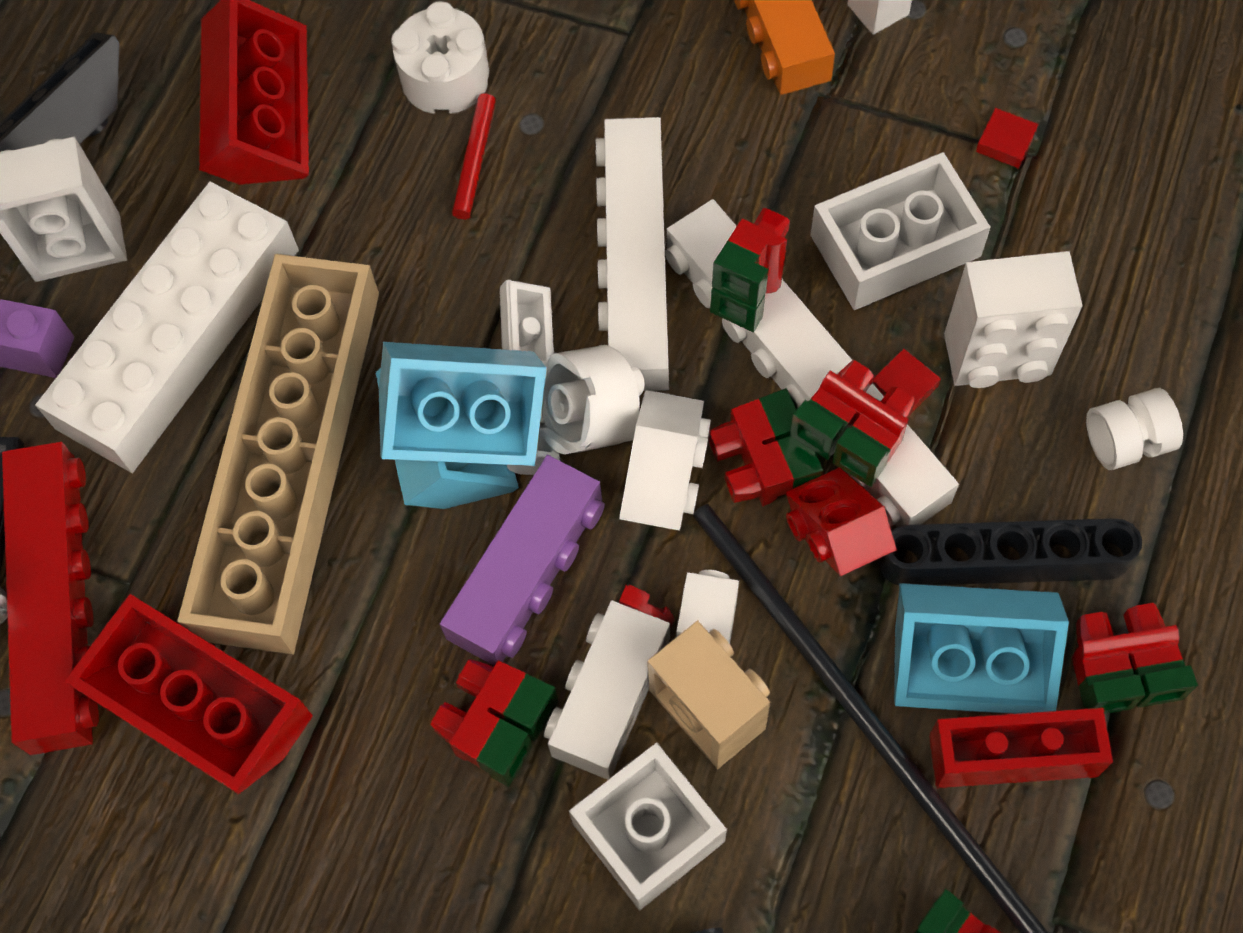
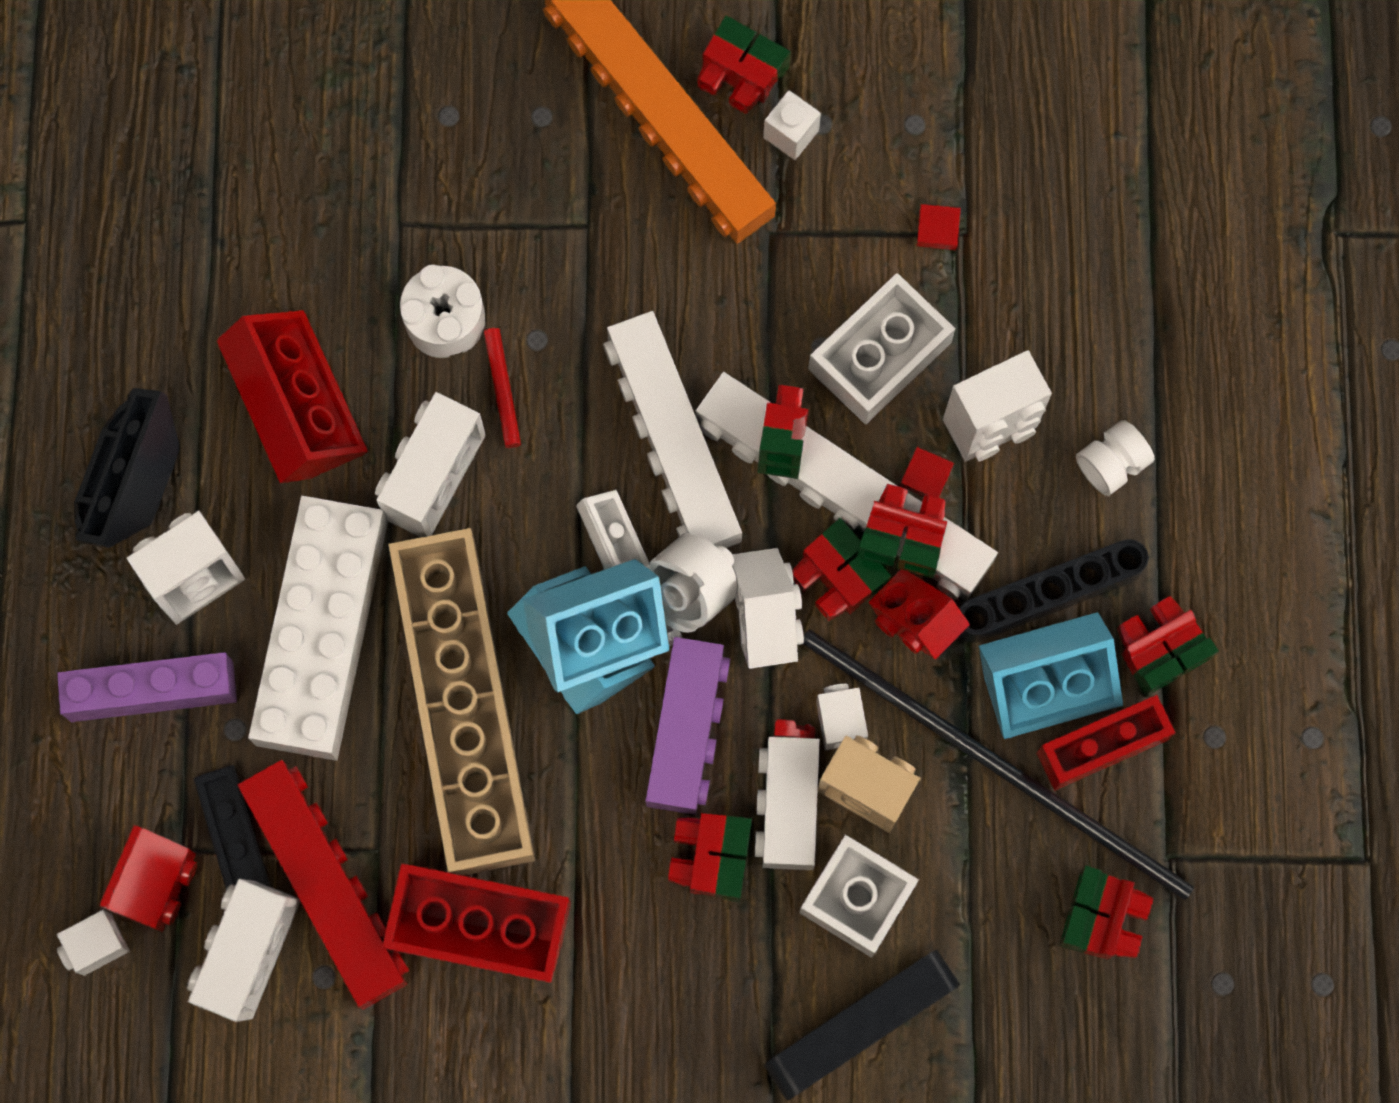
camera: 25 degrees left, 10 degrees up
(360, 193) = (430, 465): none -> white brick

